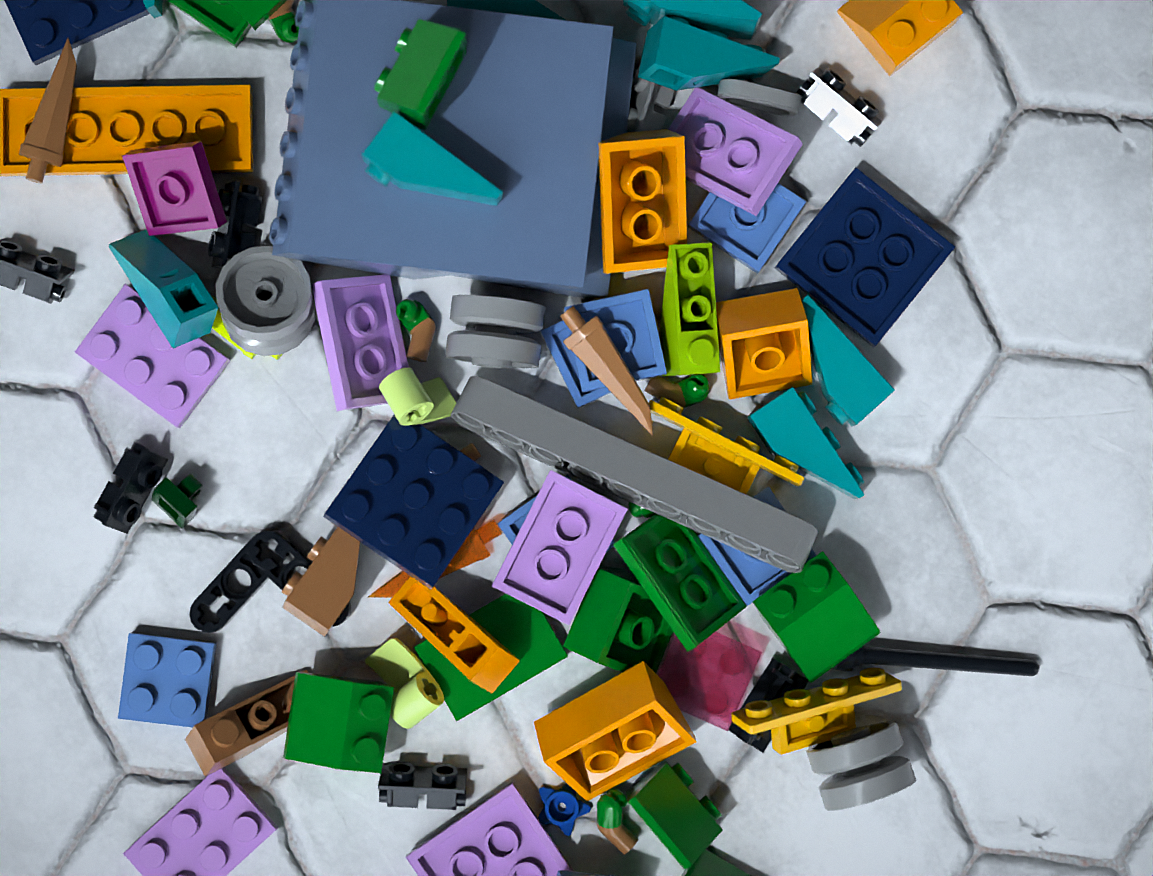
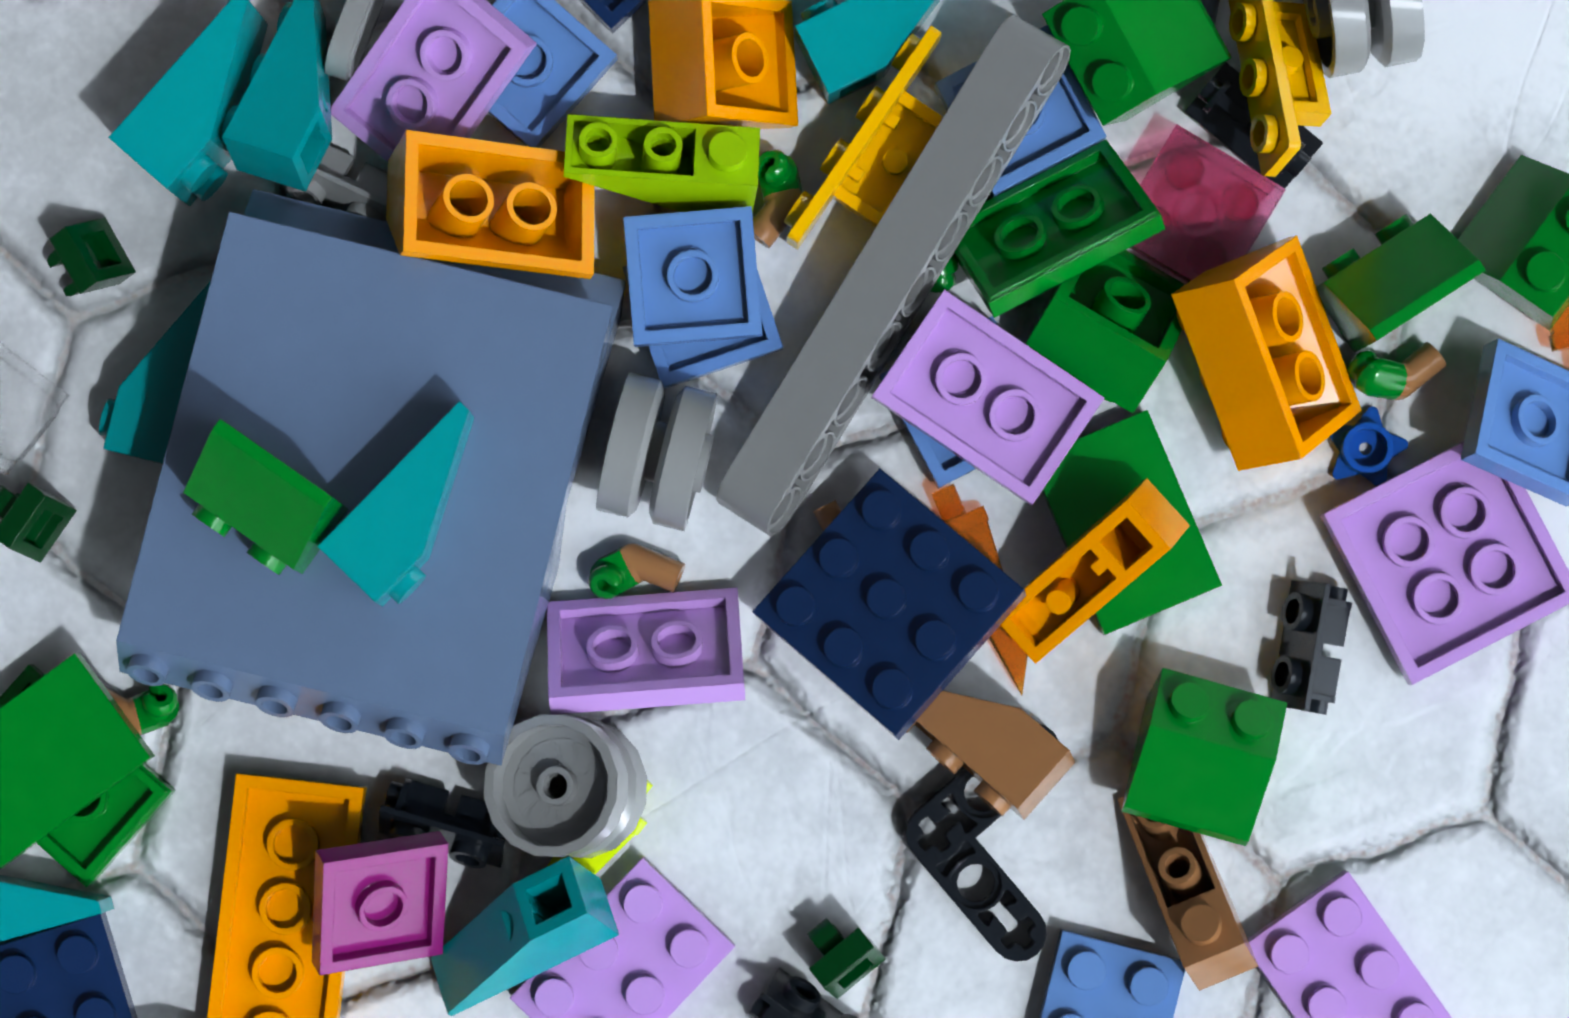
camera: 85 degrees left, 0 degrees up
(414, 687) = (1167, 638): yellowish green panel -> none
(416, 401) = (742, 583): yellowish green panel -> none
(597, 351) = (715, 298): medium nougat bar -> none

